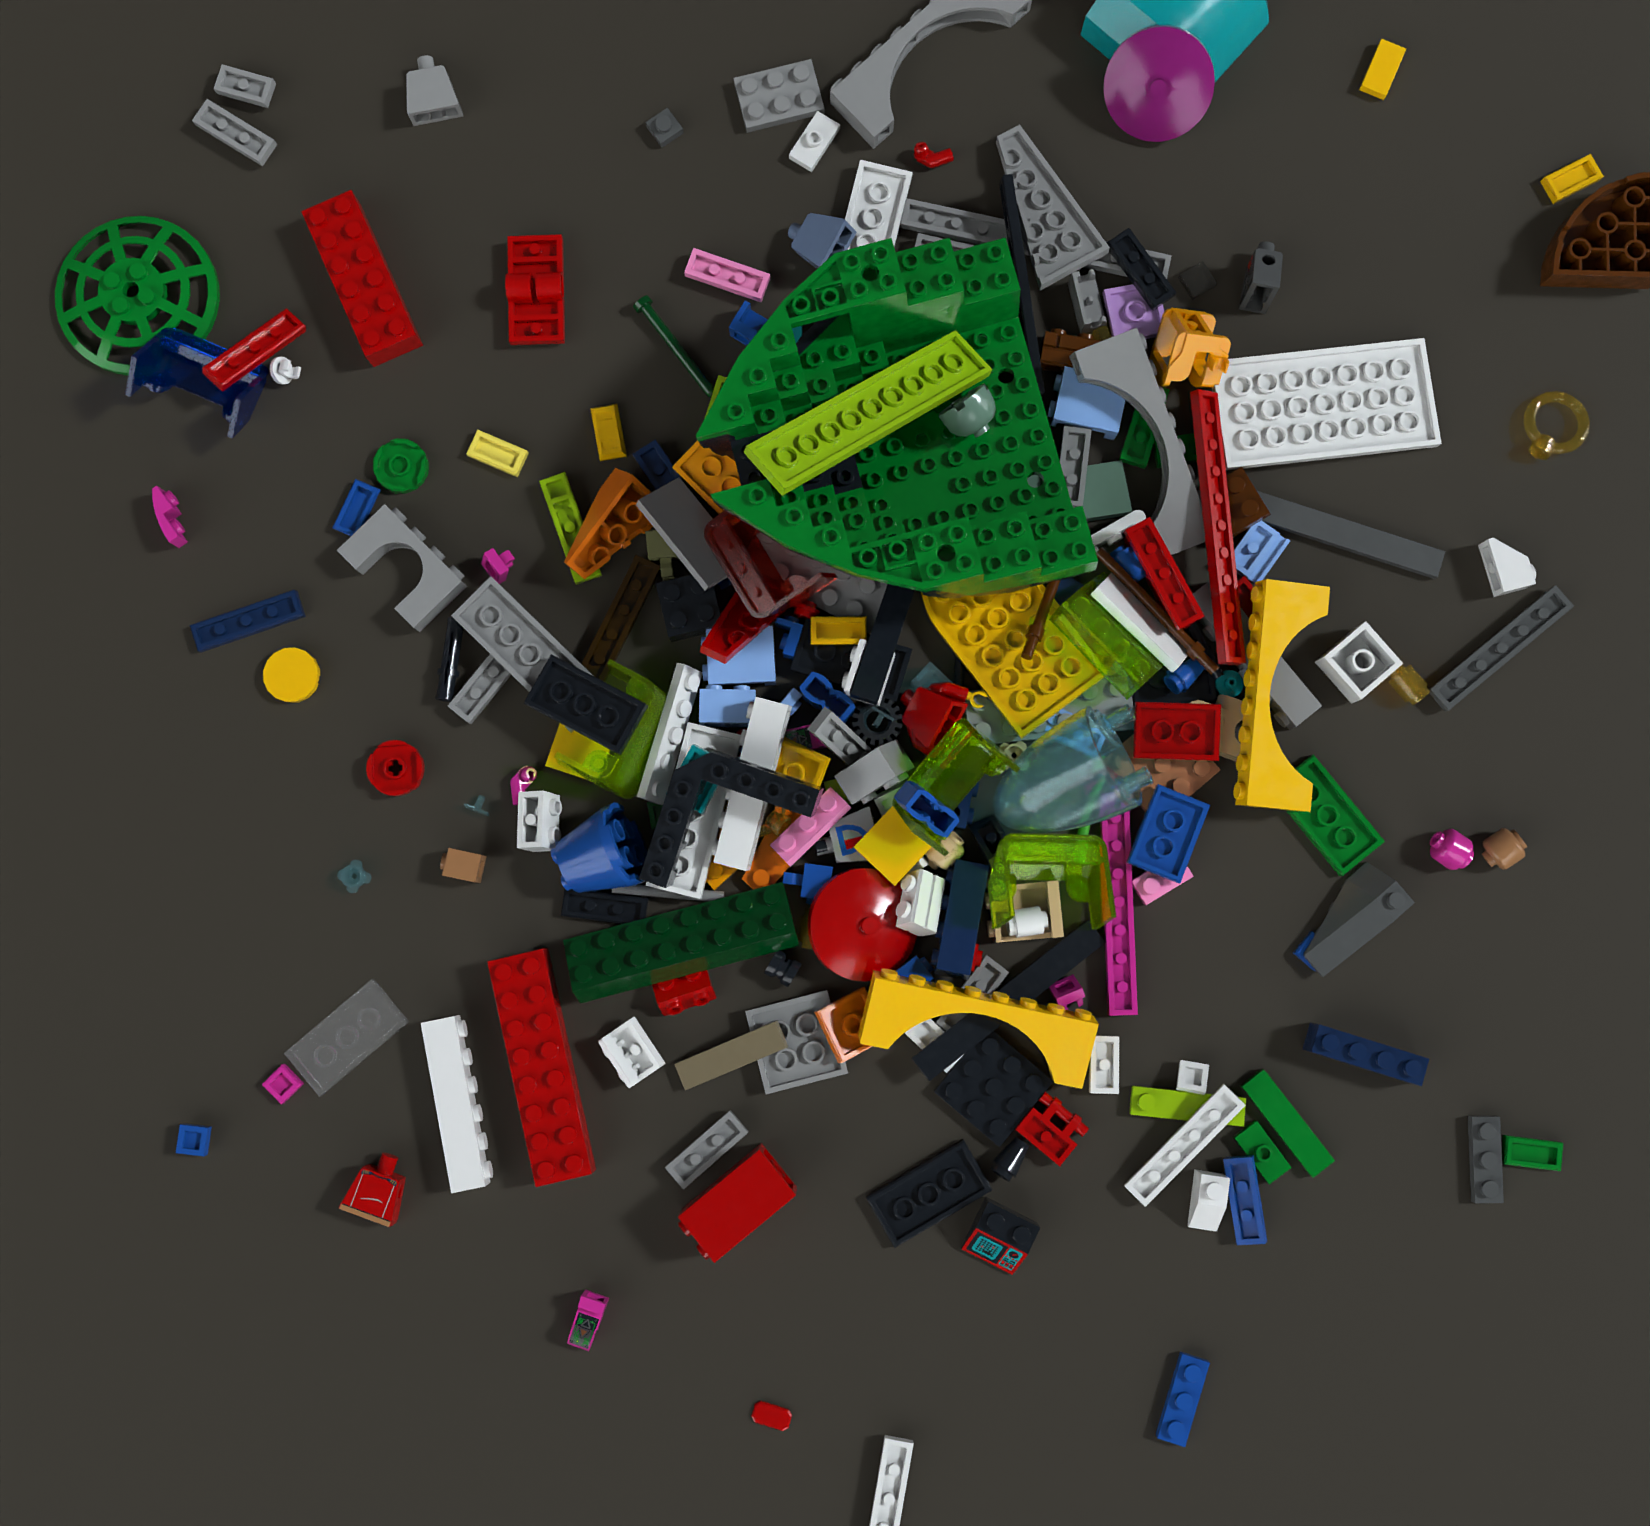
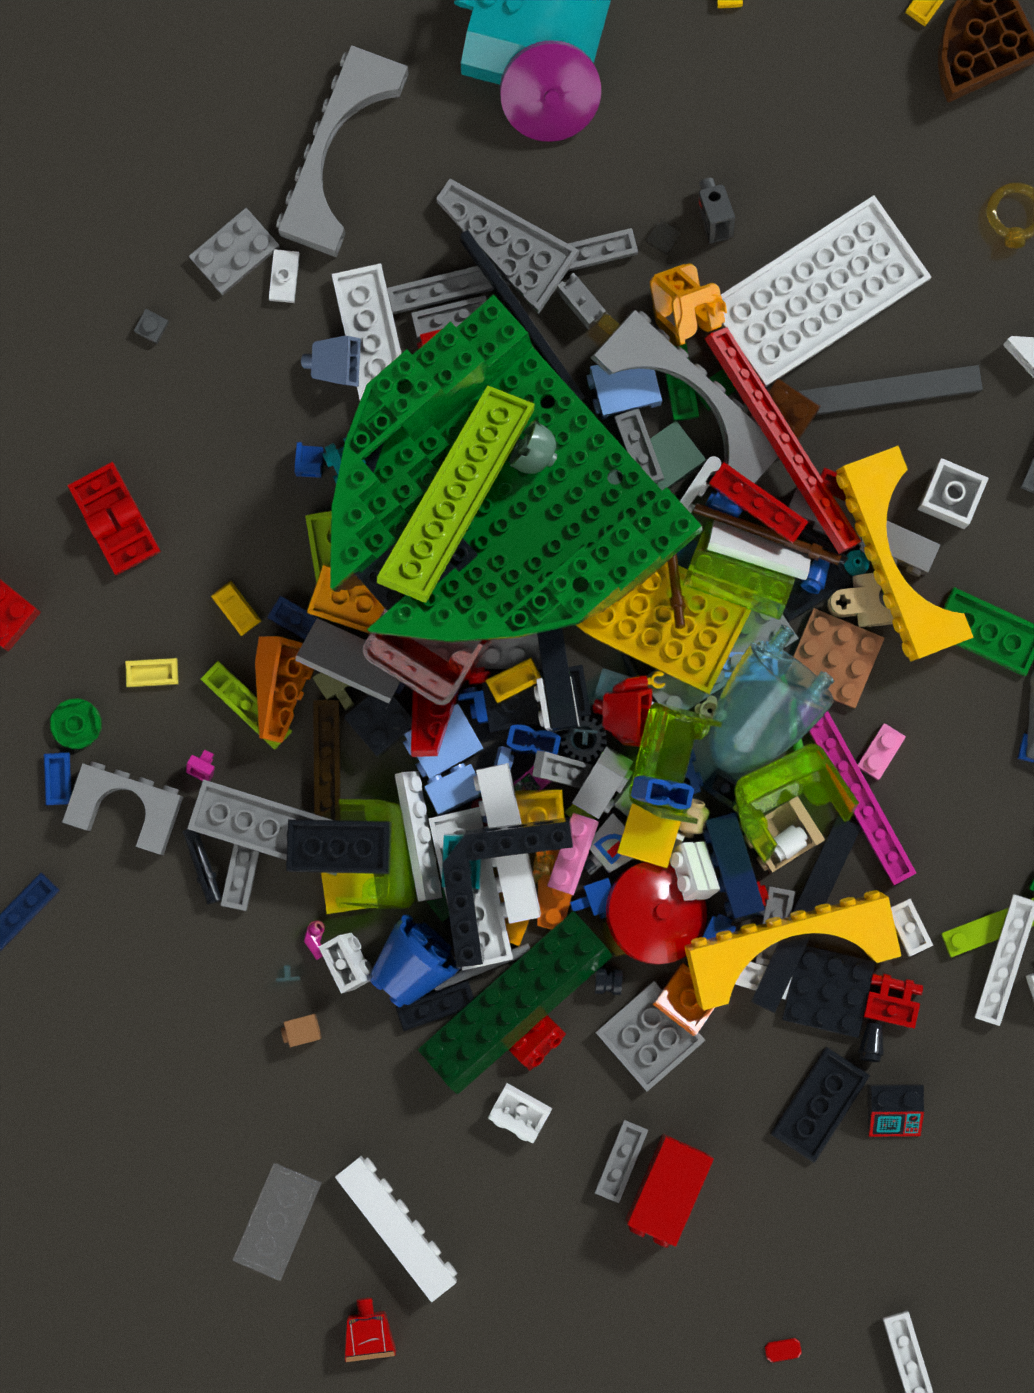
camera: 30 degrees left, 0 degrees up
(193, 1139) = (194, 1369): blue plate -> none
(283, 1084) = (243, 1286): dark pink tile -> none
(291, 675) = (75, 945): yellow tile -> none
(345, 876) = (207, 1087): clear light blue plate -> none
(384, 756) = (197, 992): red plate -> none
(541, 1067) = (452, 1162): red brick -> none
(587, 1319) = (594, 1349): leg -> none
(644, 306) = (212, 487): dark green bar -> none
(727, 275) = (269, 426): bright pink plate -> none
(731, 1055) = (602, 1074): dark tan tile -> none
(931, 159) = (389, 243): red arm -> none
(1058, 347) = (577, 352): reddish brown brick -> none
(1067, 991) = (850, 882): dark pink tile -> none
(1129, 310) = (623, 289): lavender plate -> none
(1141, 269) = (612, 253): black tile -> none
(1168, 833) = (867, 712): blue tile -> none
(1177, 731) = (833, 625): red tile -> none
(1192, 1077) = (986, 901): white plate -> none
(1258, 551) = (826, 441): light blue plate -> none
(1409, 684) = (1002, 490): clear yellow brick -> none

